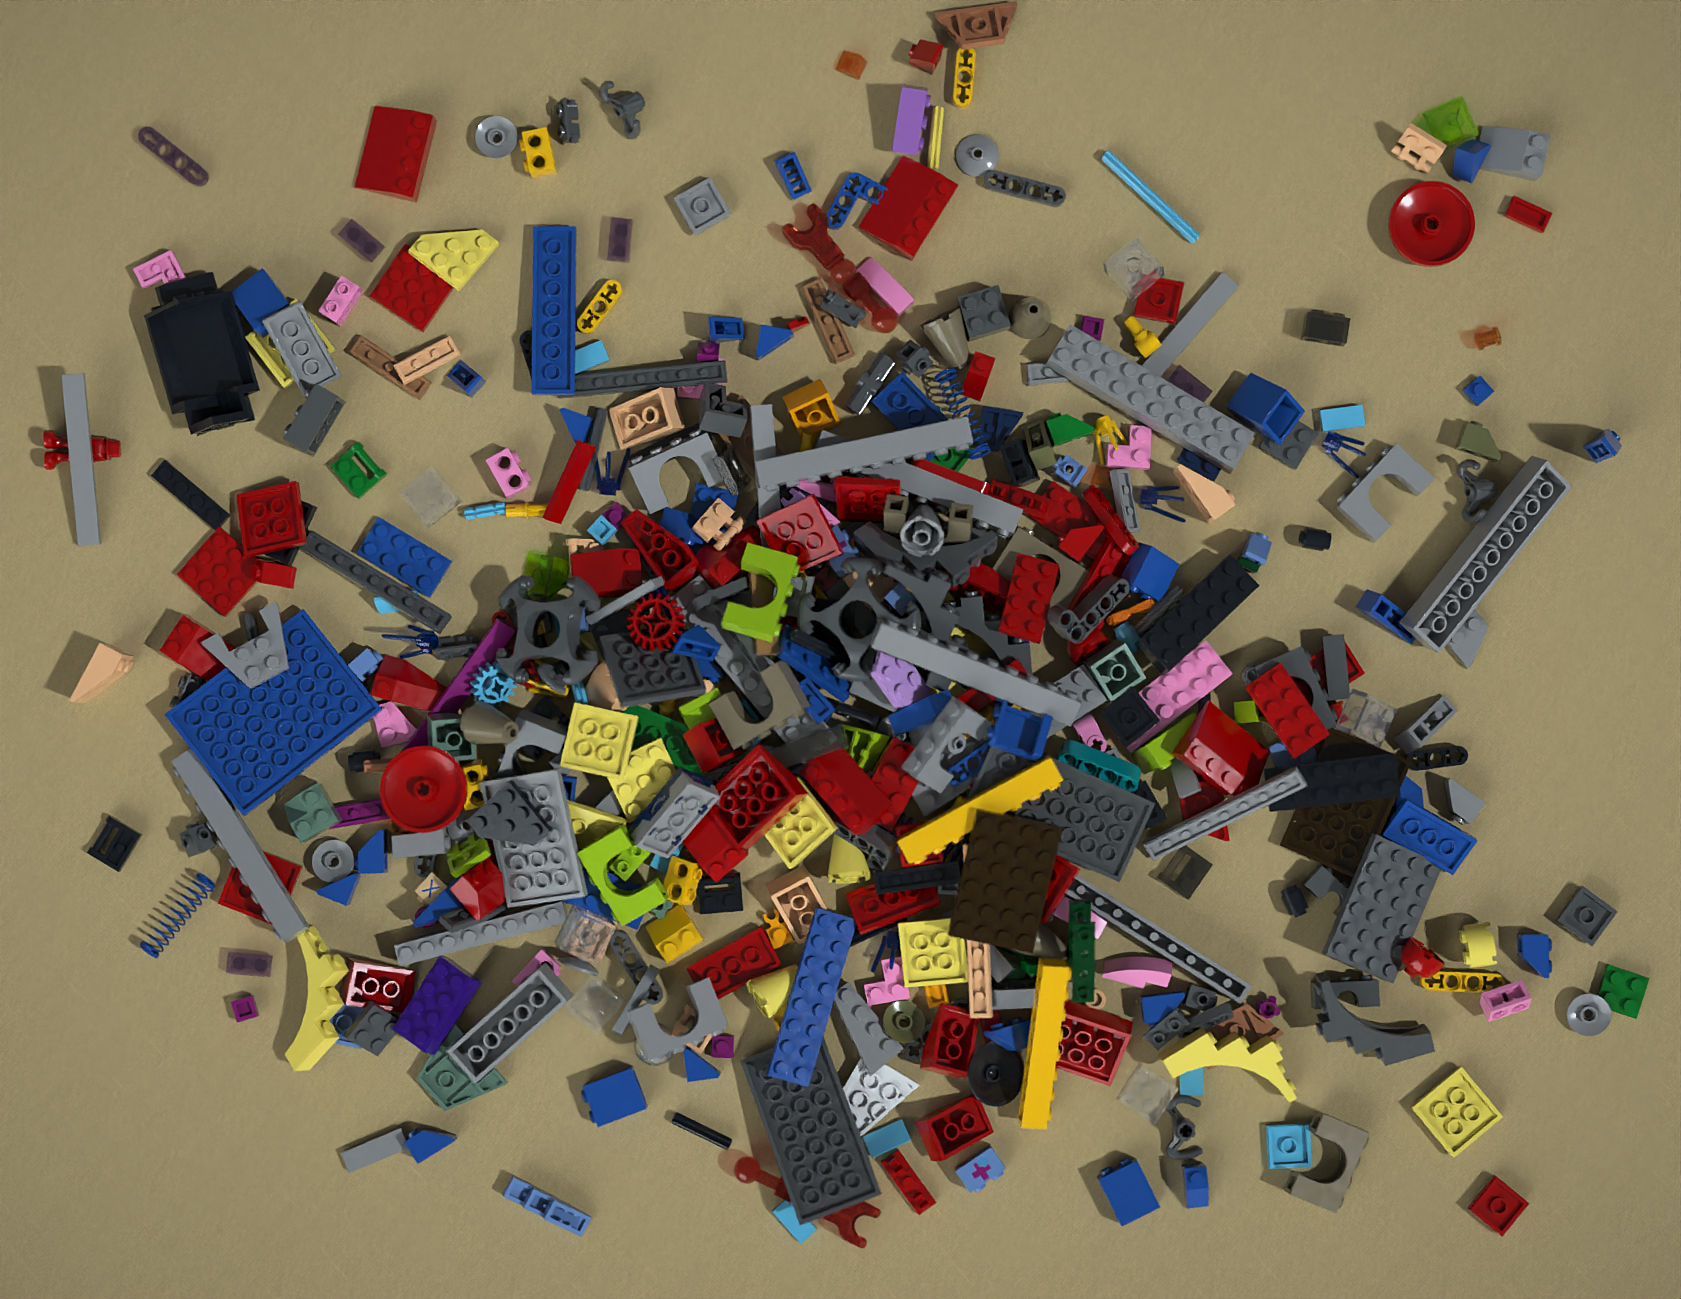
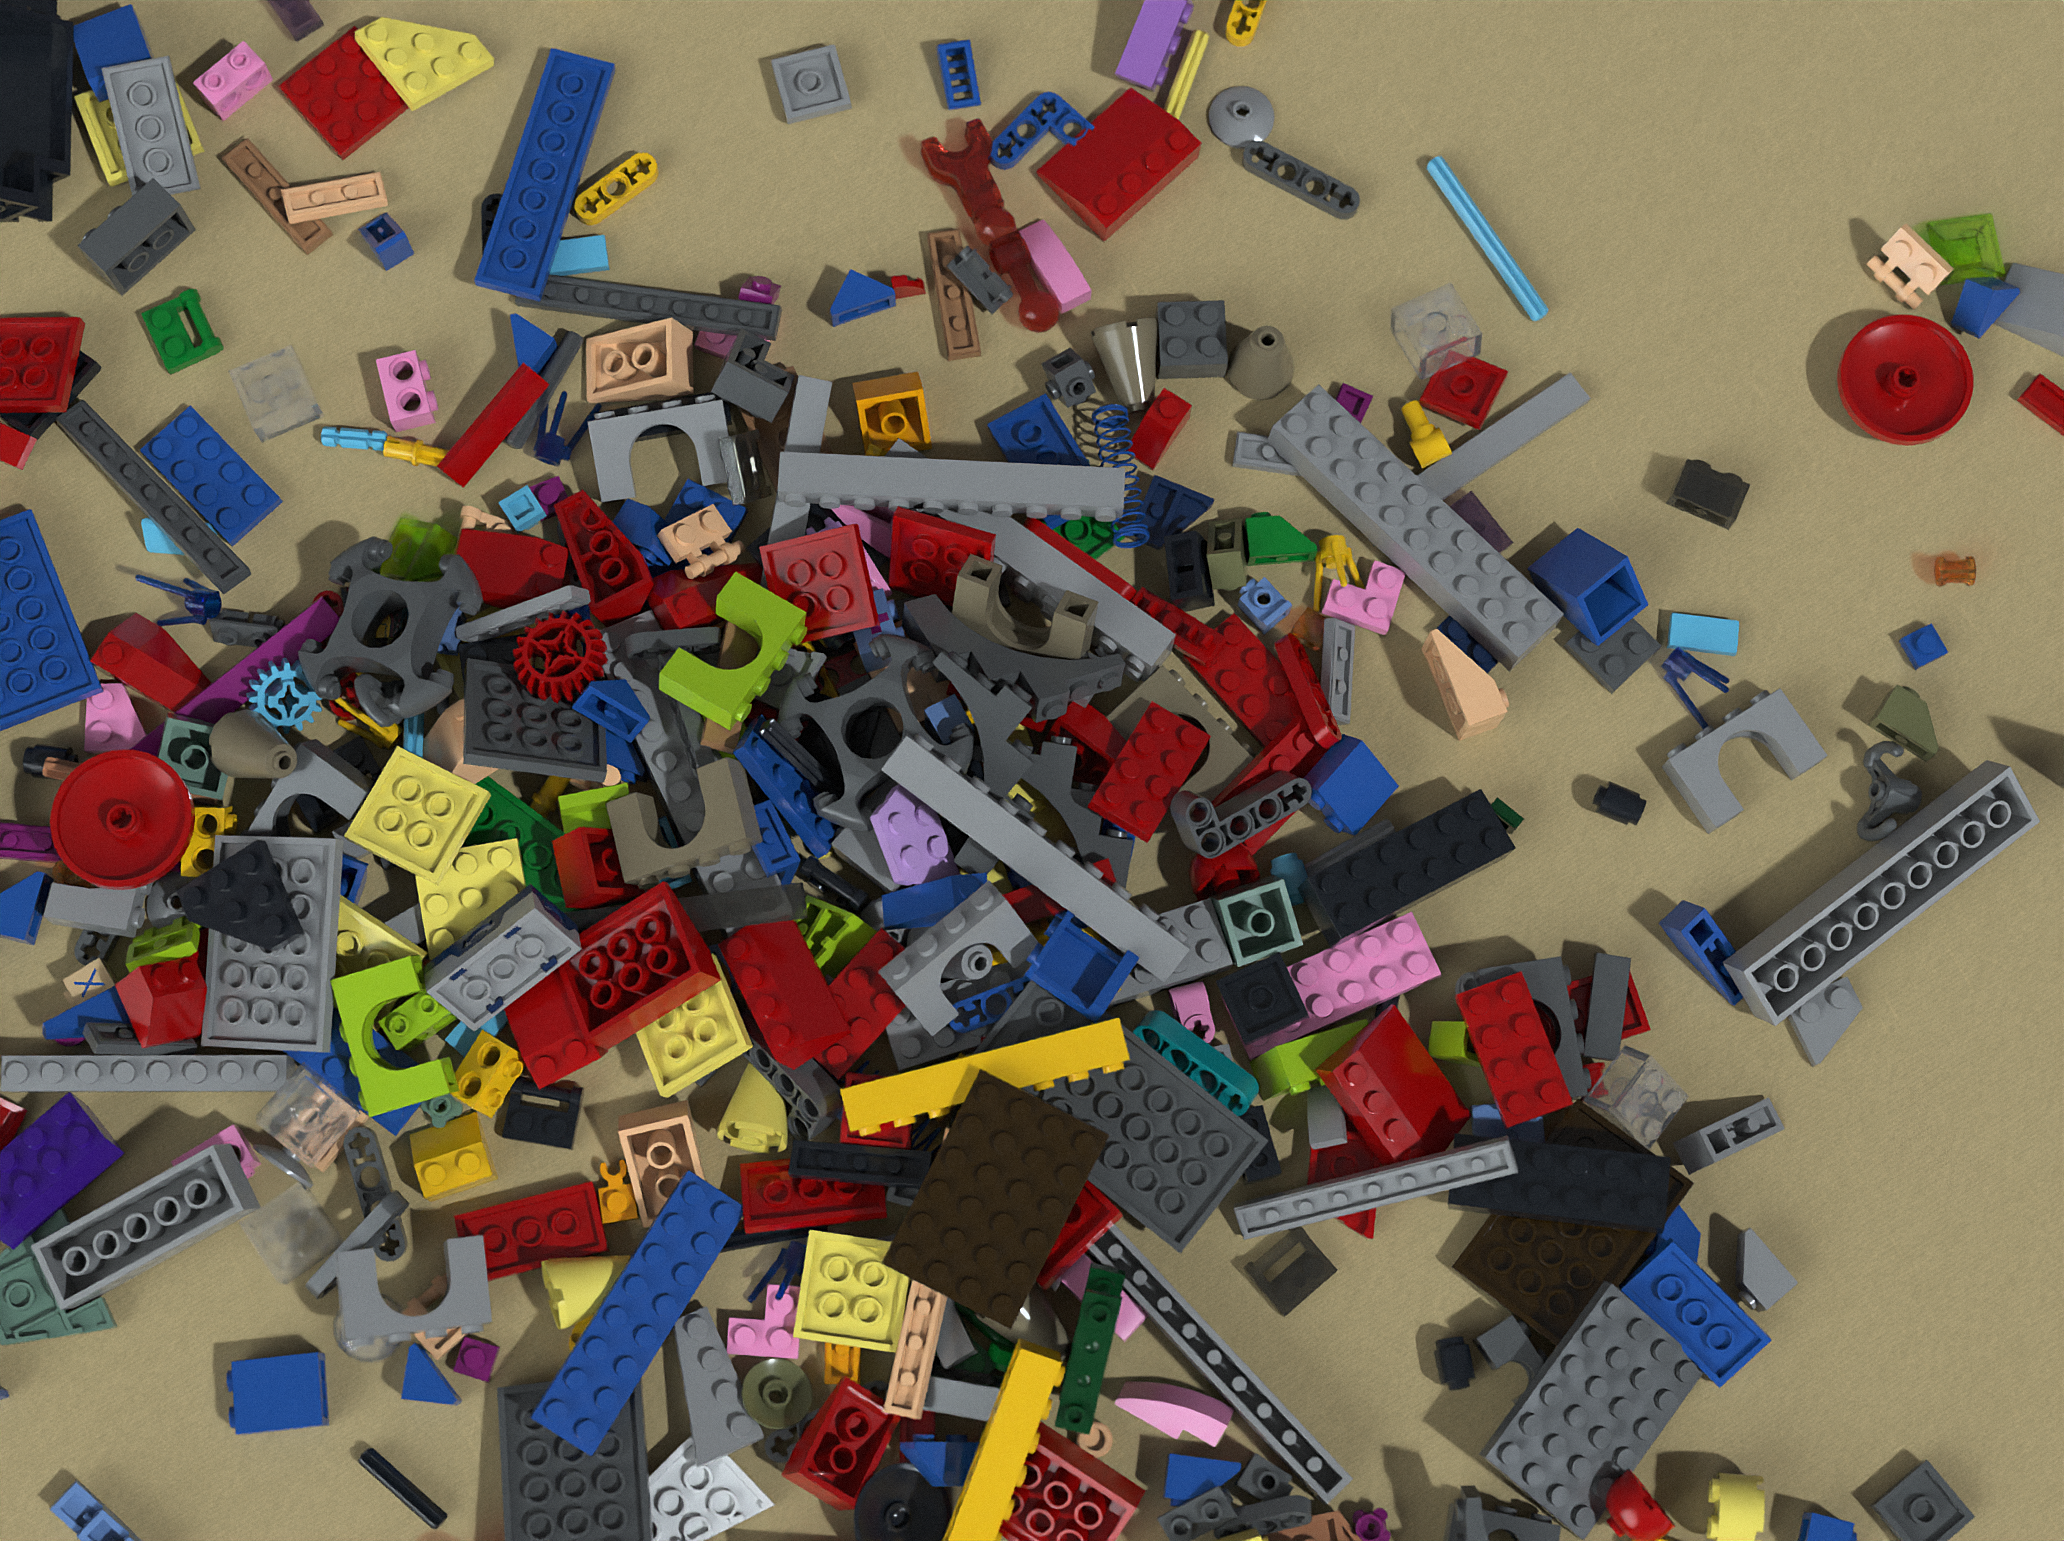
camera: 10 degrees right, 10 degrees down
(366, 663) = (100, 616): medium blue brick -> none
(620, 240) = (674, 100): clear purple plate -> none
(725, 329) = (794, 265): blue slope -> none
(869, 383) = (991, 399): dark grey piece -> none
(922, 532) = (1007, 624): light grey cone -> none
(1079, 540) = (1252, 707): red slope -> none
(1123, 616) = (1290, 842): orange piece -> none
(1150, 496) = (1378, 673): clear blue plant -> none
(1256, 548) = (1525, 792): medium blue slope -> none
(1450, 750) = (1760, 1188): black beam -> none

